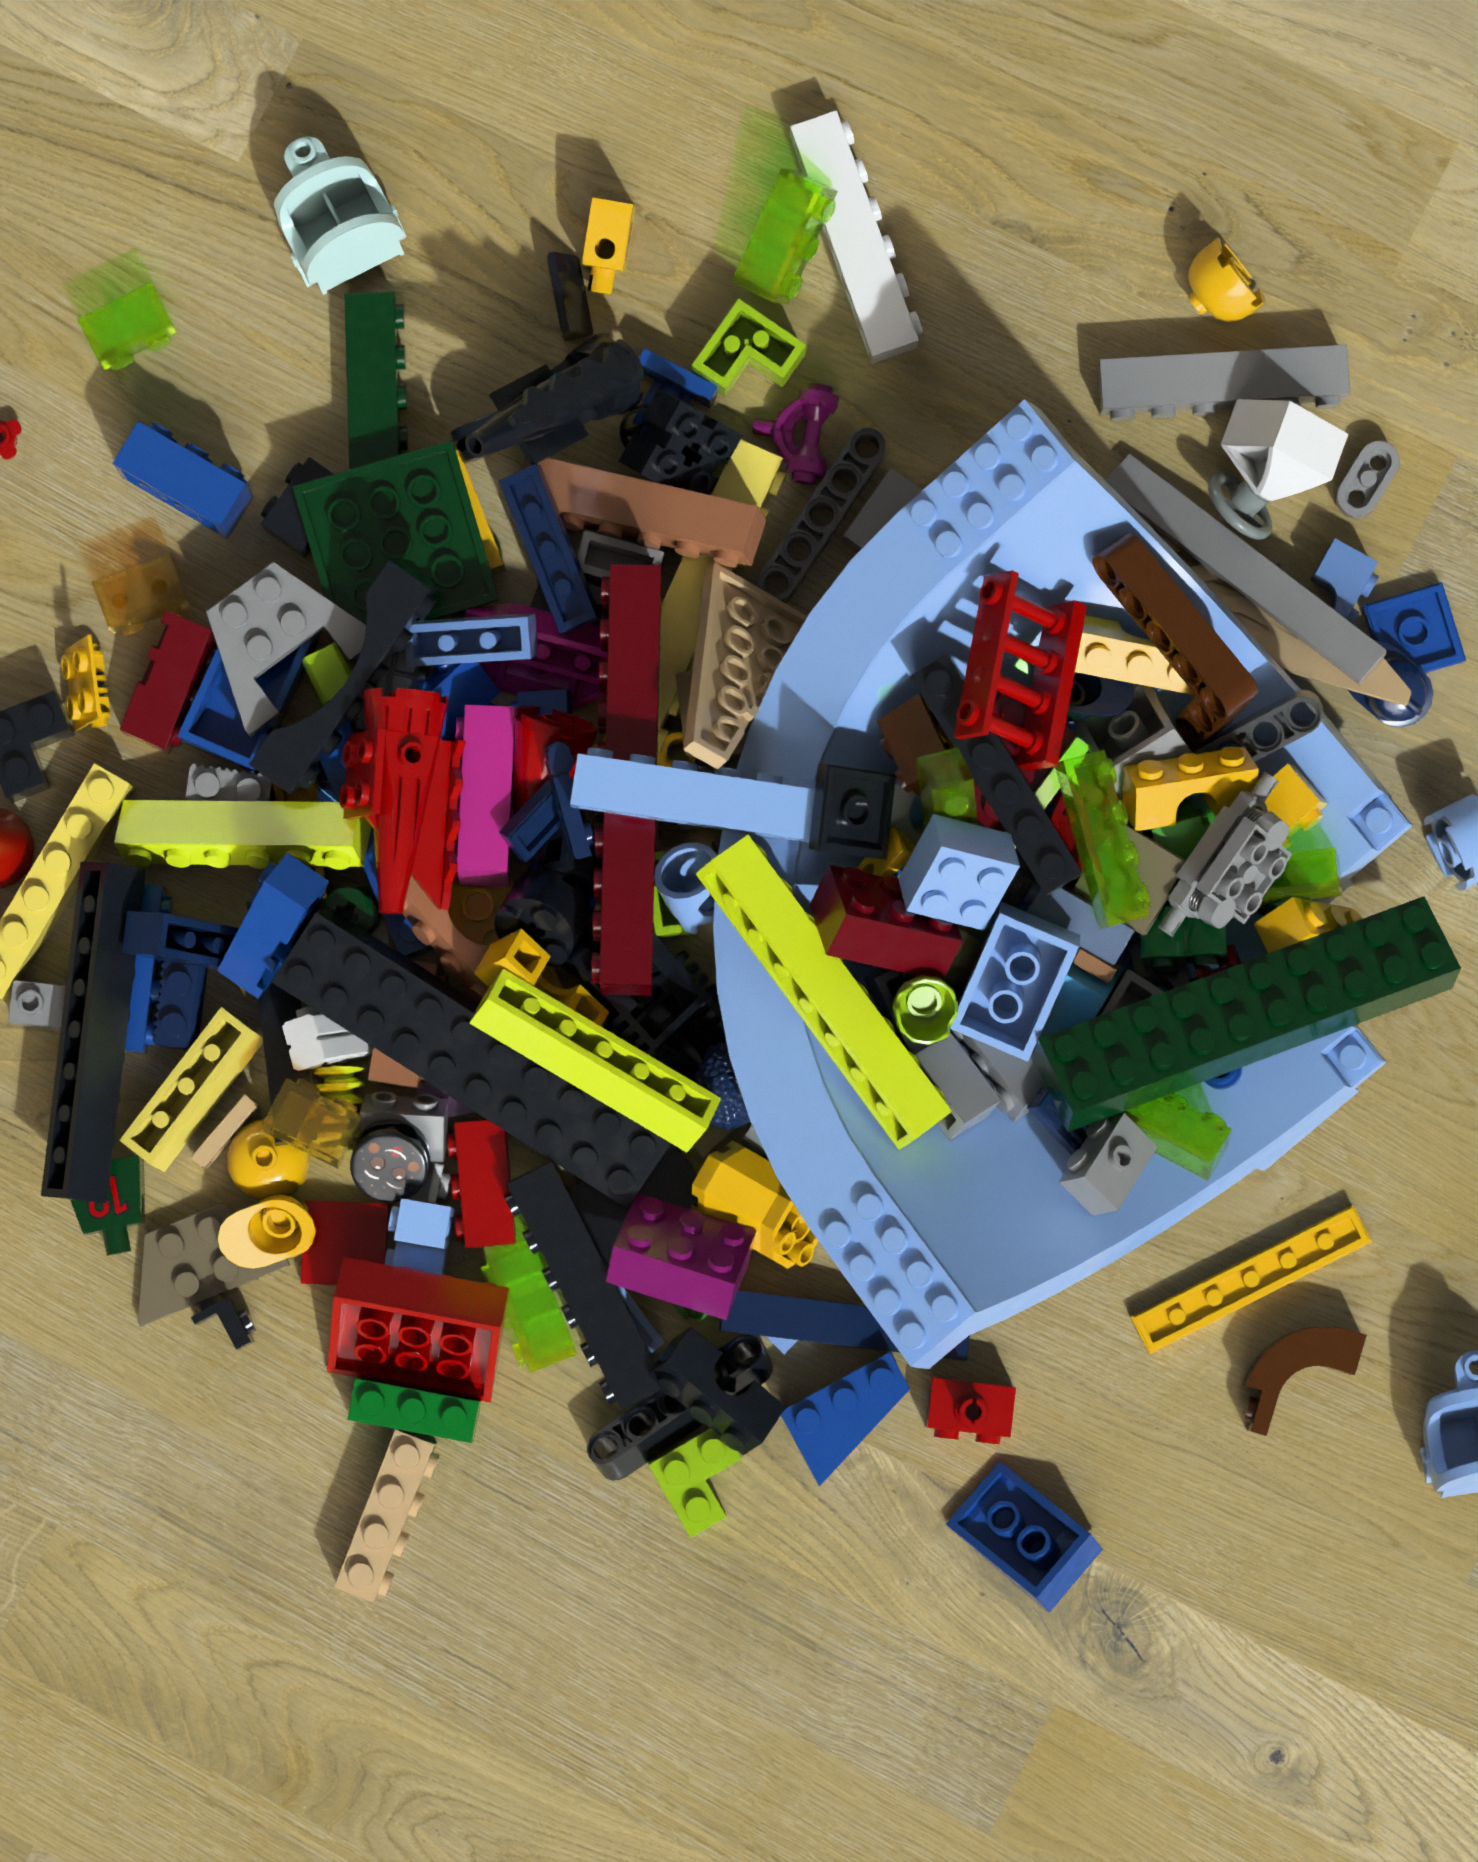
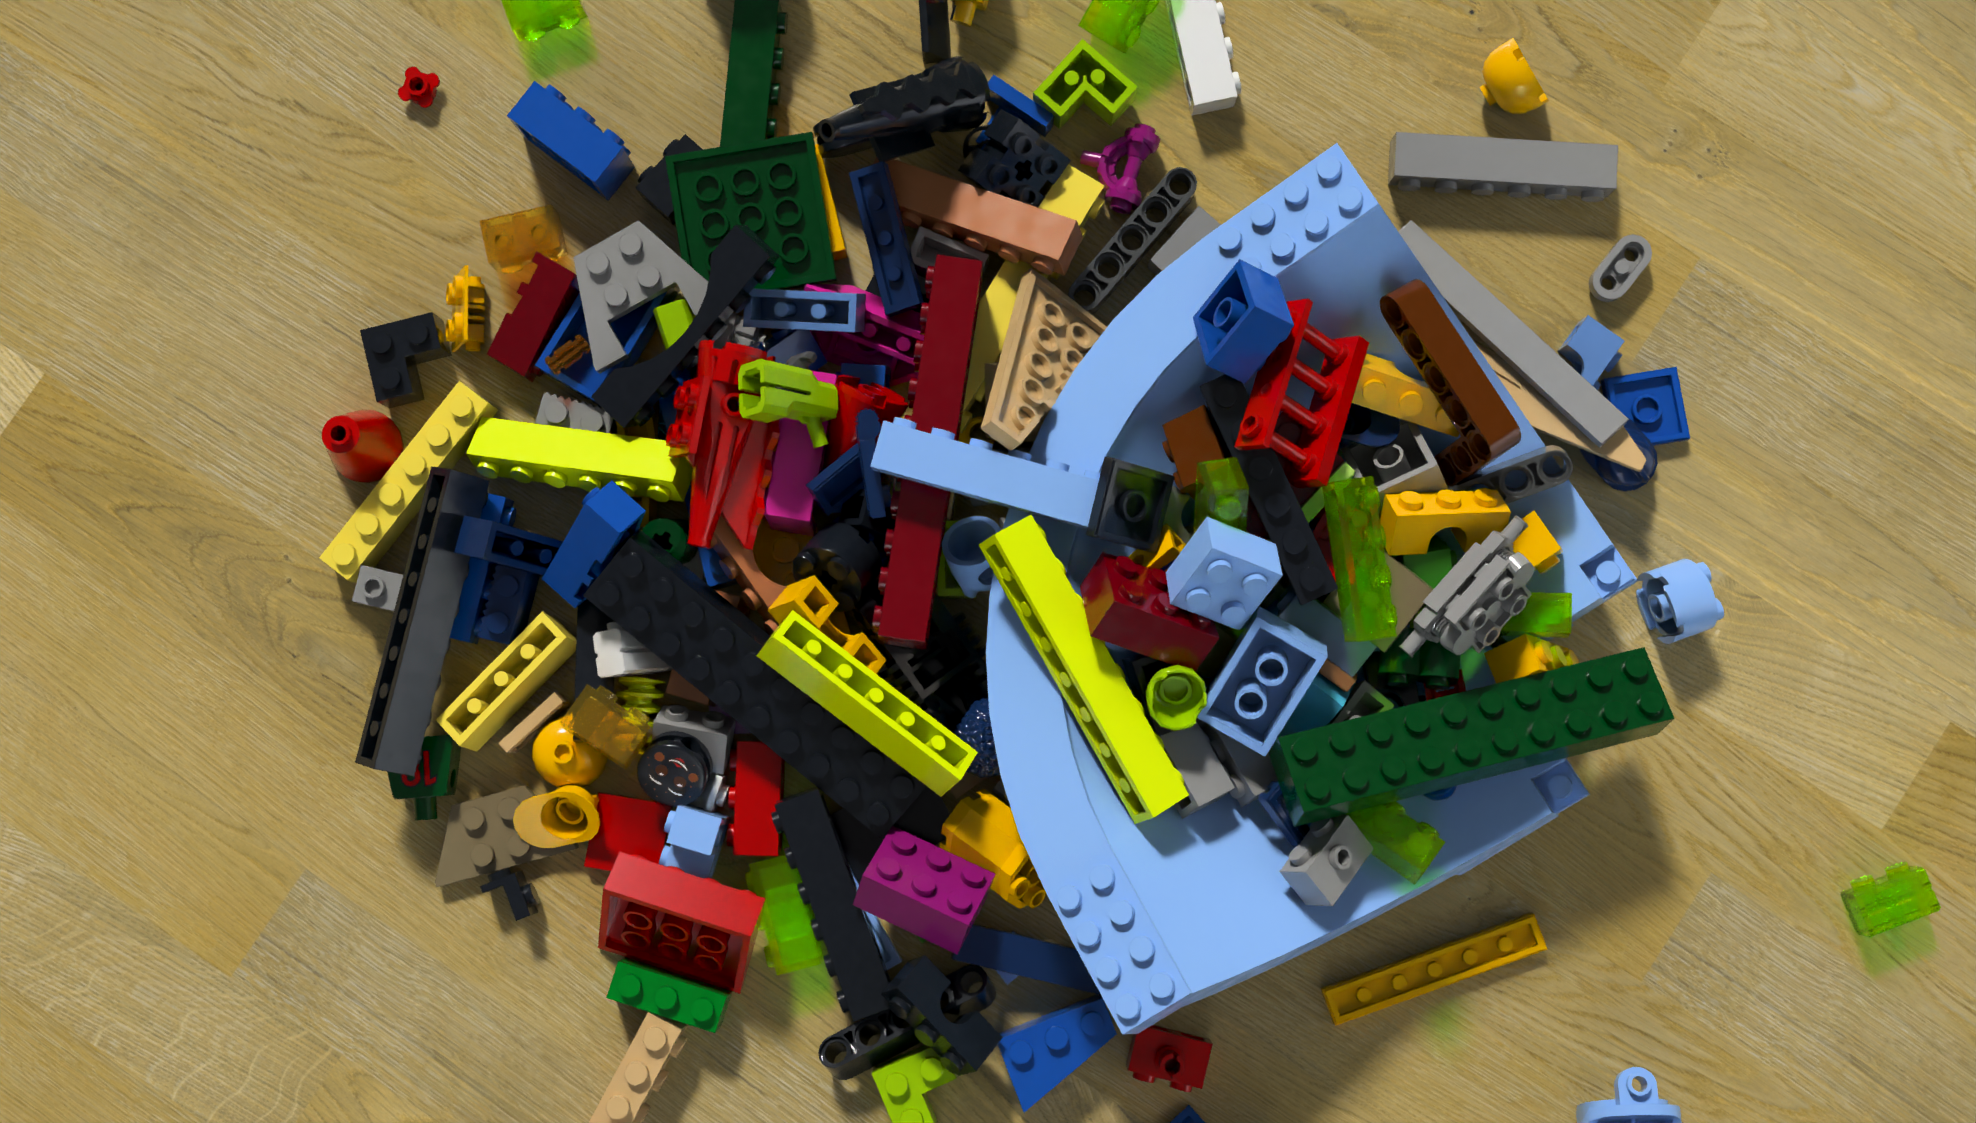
camera: 15 degrees right, 0 degrees up
(213, 720) = (567, 354): none -> clear orange piece
(469, 735) = (788, 393): none -> lime piece
(946, 603) = (1243, 321): none -> blue brick
(1278, 454) = (1549, 230): white piece -> none
(1303, 1348) = (1464, 1043): reddish brown arch -> none

